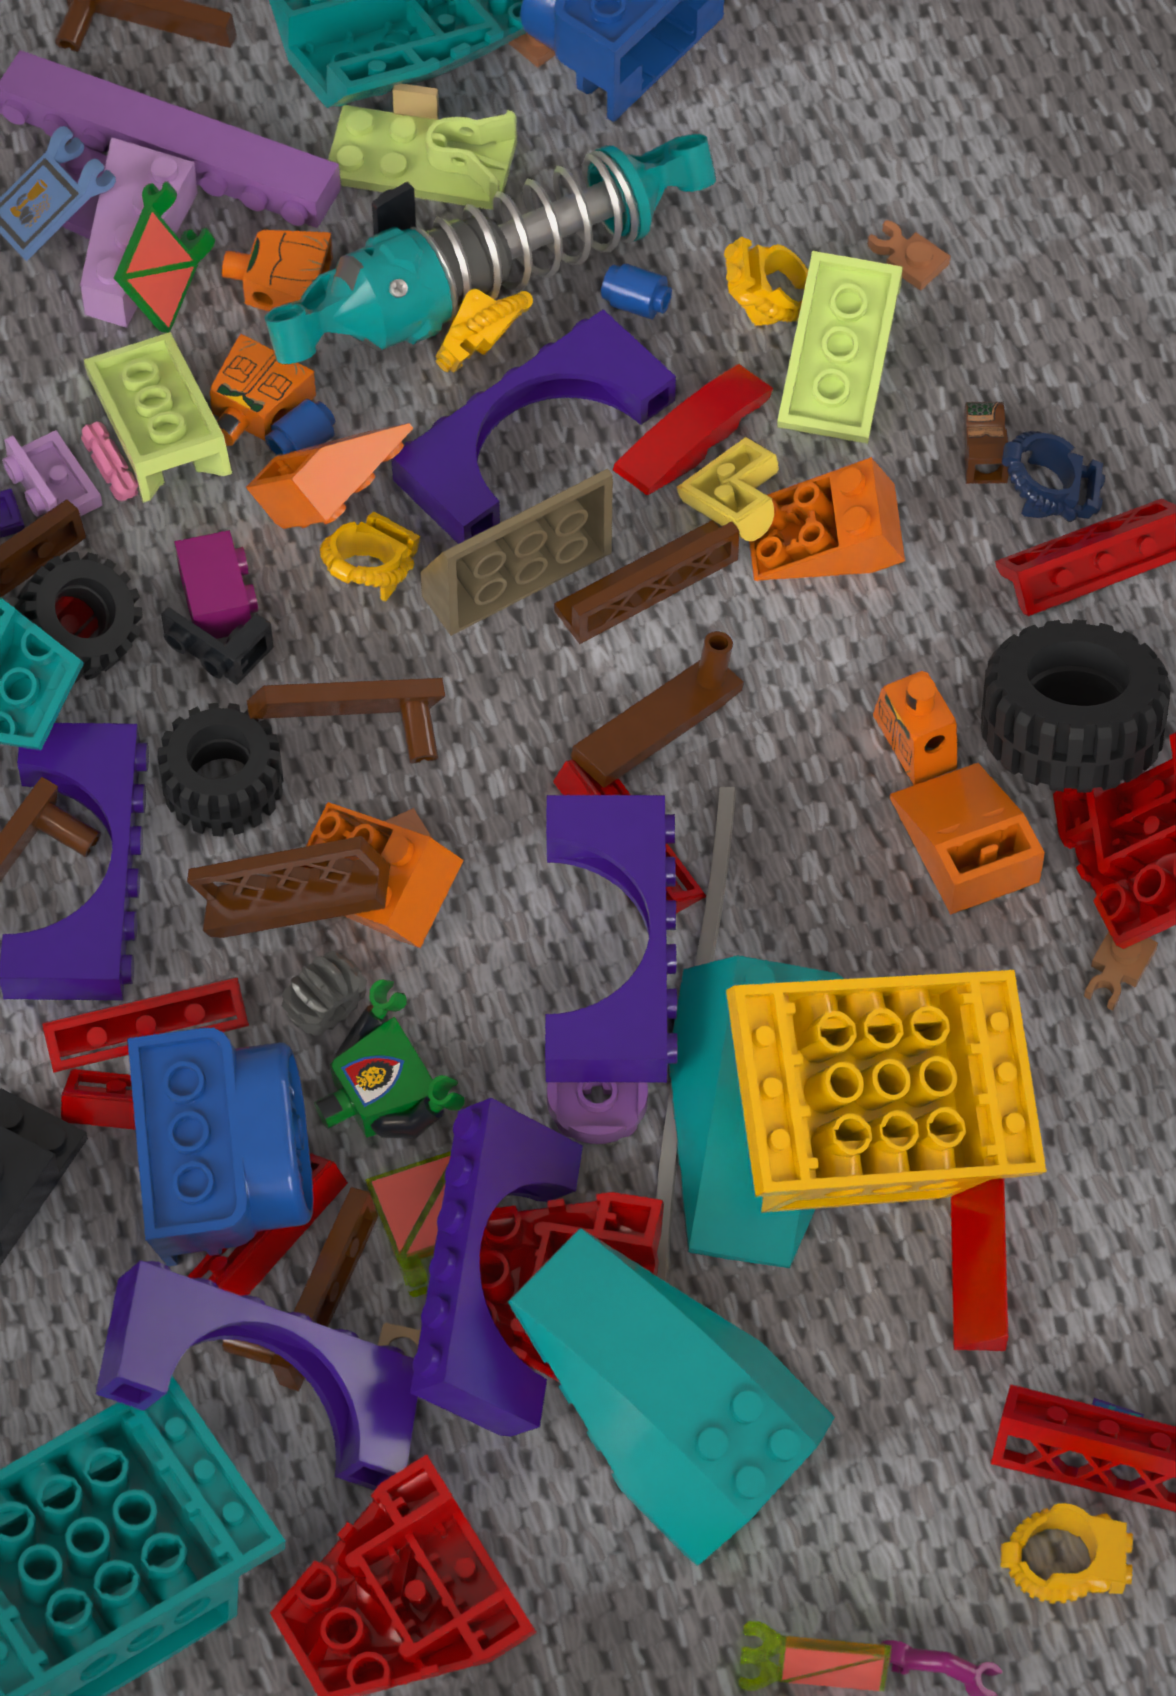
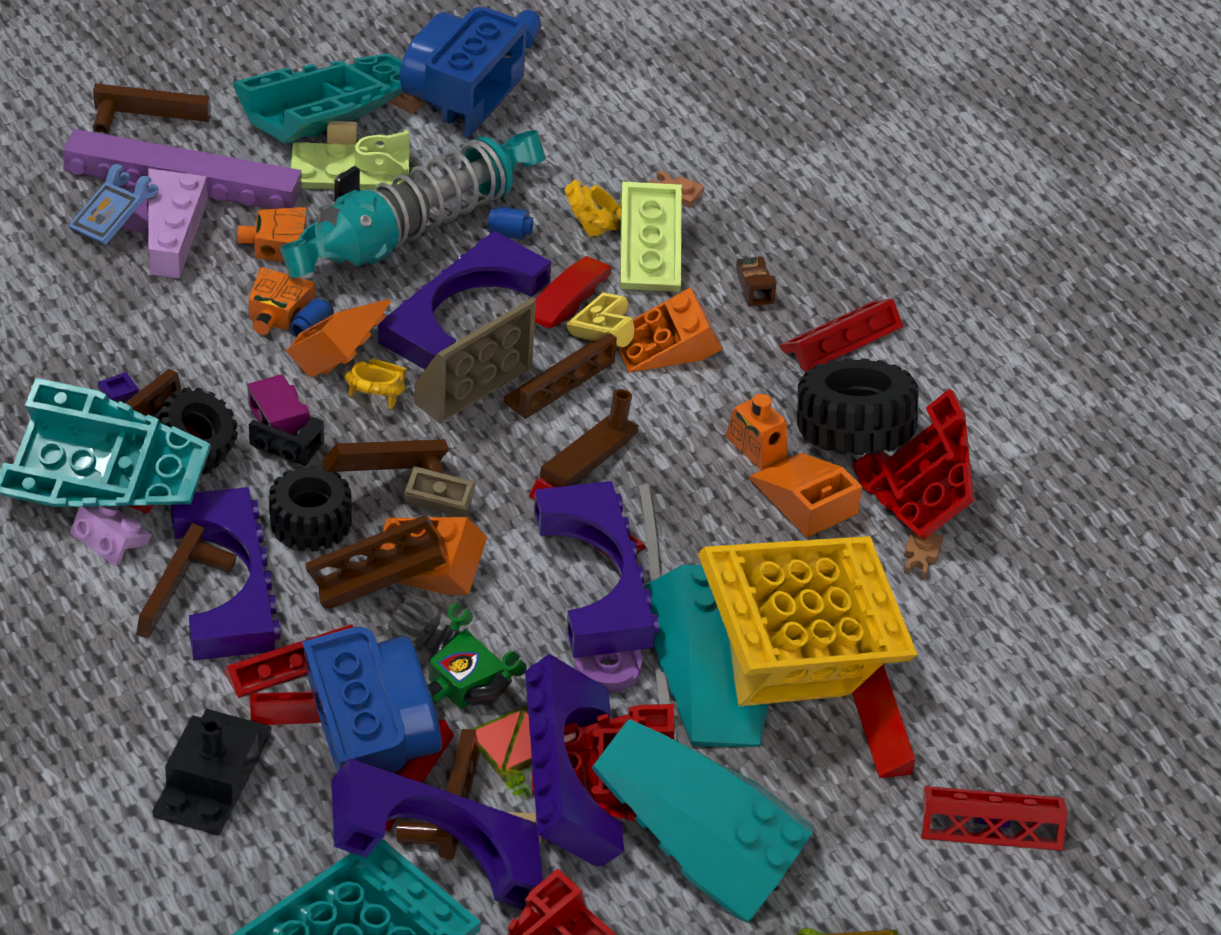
camera: 15 degrees left, 15 degrees down
(50, 474) = (149, 359): lavender bracket -> none
(109, 461) = (188, 351): bright pink axle -> none
(157, 411) = (218, 316): yellowish green plate -> none
(159, 264) = (195, 234): flag -> none
(417, 763) = (439, 492): none -> dark tan slope
(479, 326) = (415, 248): yellow piece -> none
(1056, 455) = (804, 293): dark blue piece -> none
(1107, 1547) = (1005, 864): yellow piece -> none

